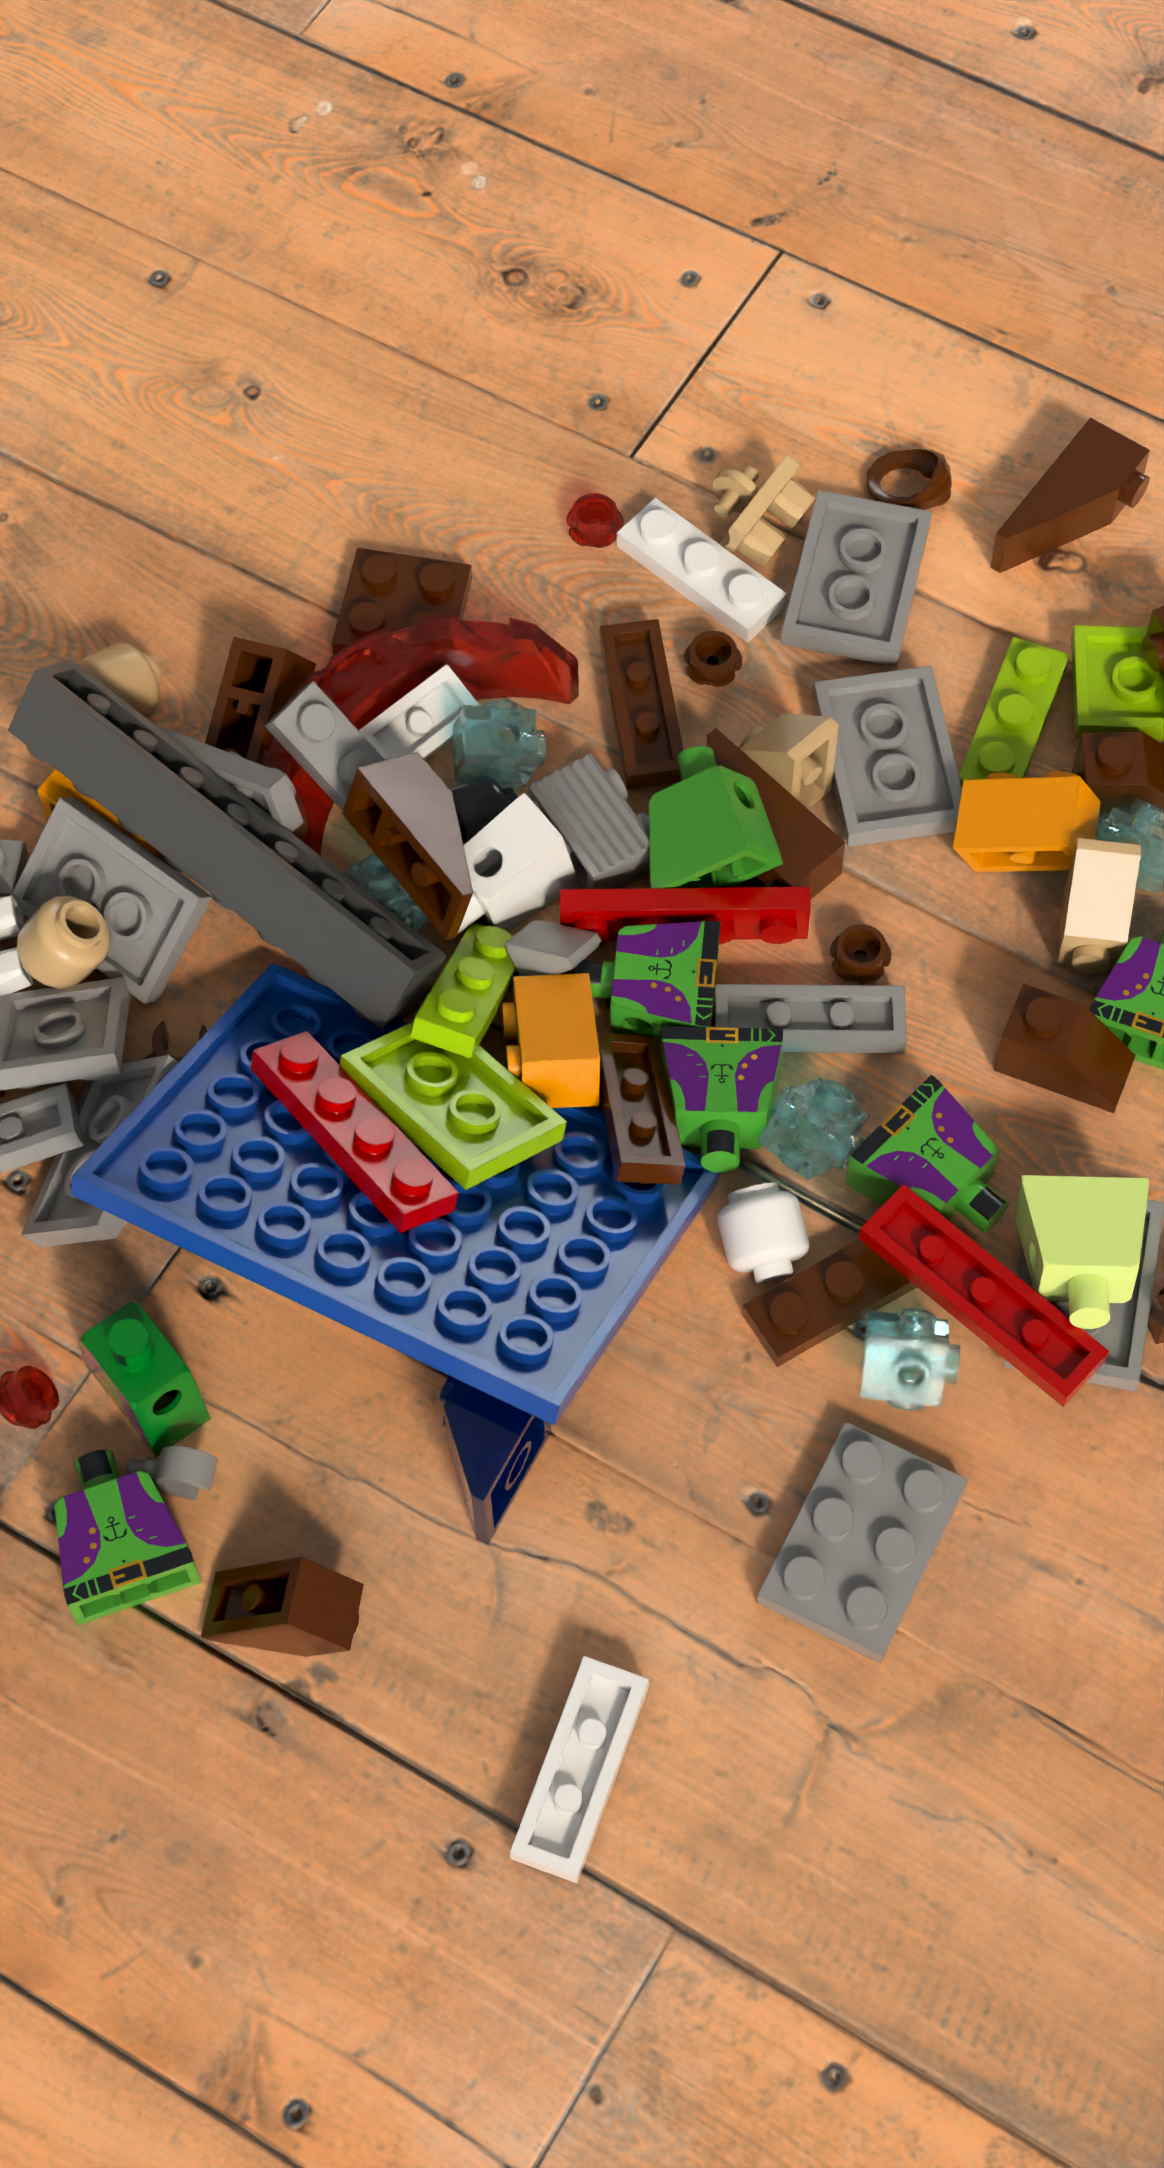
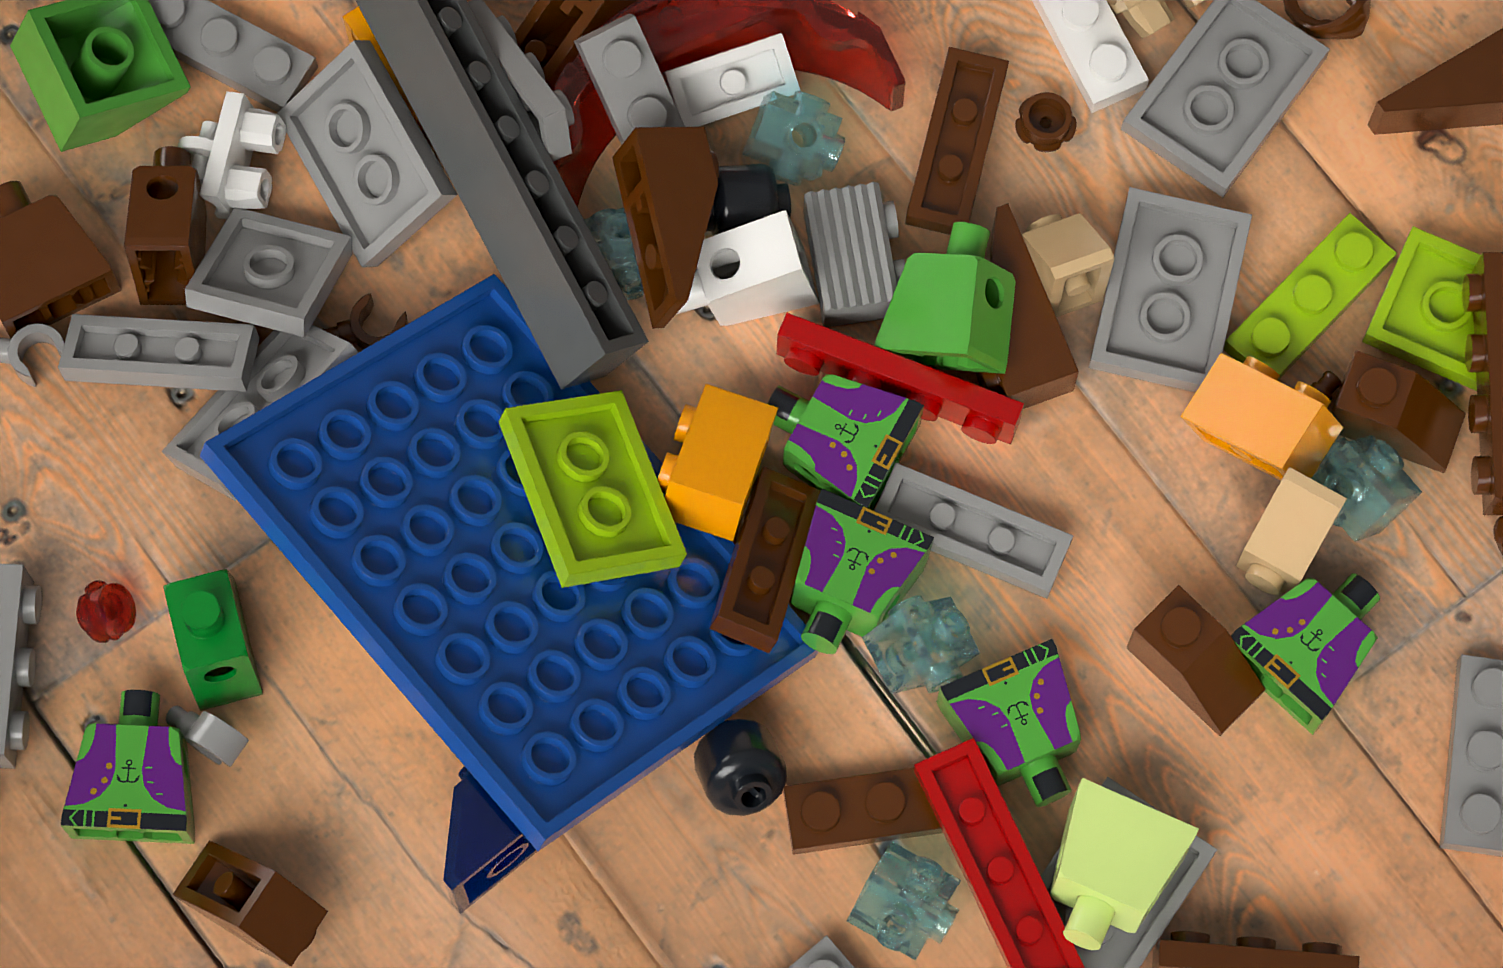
camera: 20 degrees right, 10 degrees up
(63, 942) = (306, 182): tan head -> none
(354, 1131) = (485, 488): plate -> none
(467, 992) = (660, 380): lime plate -> none
(550, 948) = (754, 366): light grey slope -> none
(697, 1299) = (740, 767): none -> black head
(763, 1231) = (831, 724): white head -> none
(862, 940) = (1049, 468): reddish brown plate -> none

